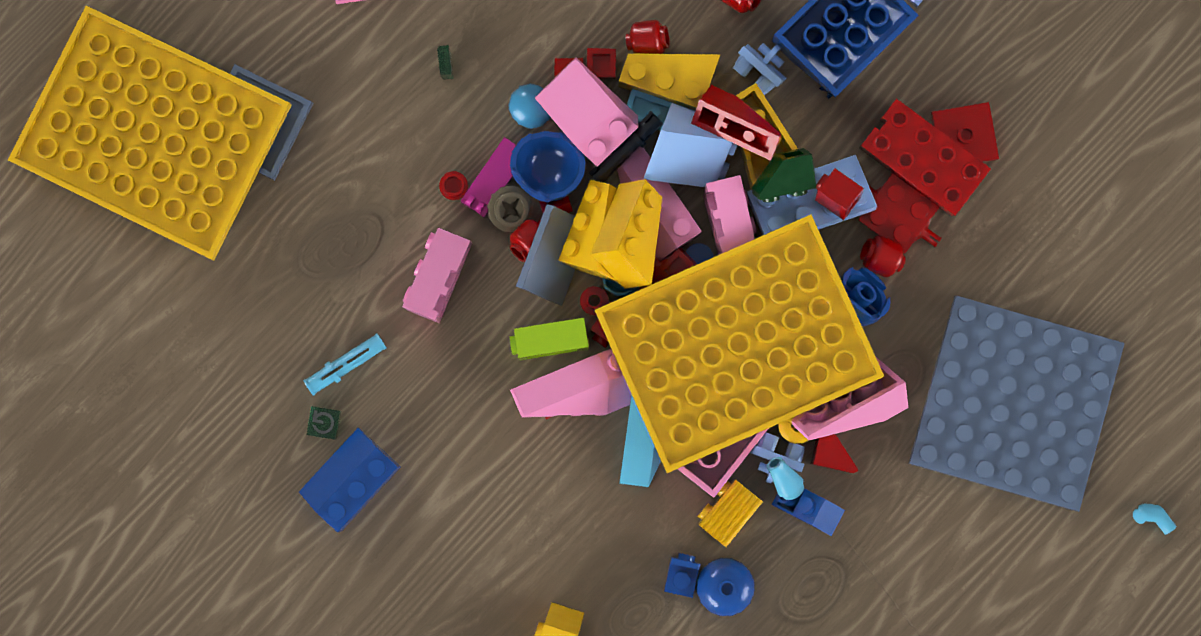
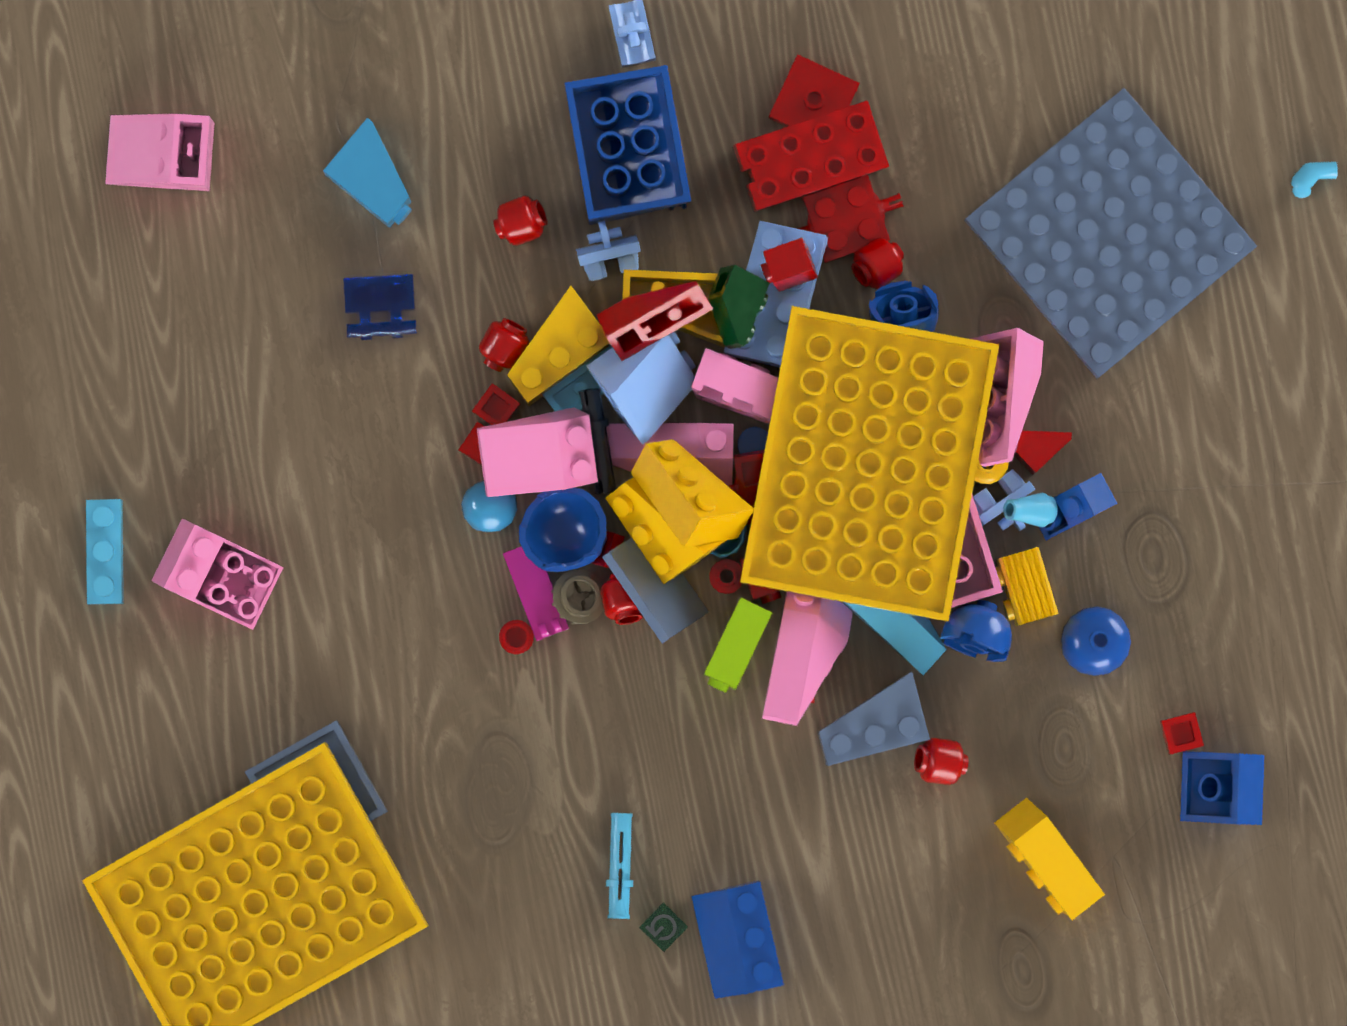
camera: 60 degrees left, 0 degrees up
(436, 275) = (594, 714): bright pink wedge -> none
(445, 62) = (388, 560): clear green tile -> none
(561, 474) = (877, 725): none -> sand blue wedge
(568, 535) = (940, 761): none -> red head
(676, 500) = (978, 630): none -> blue cylinder
(682, 575) = (1055, 675): blue bracket -> none

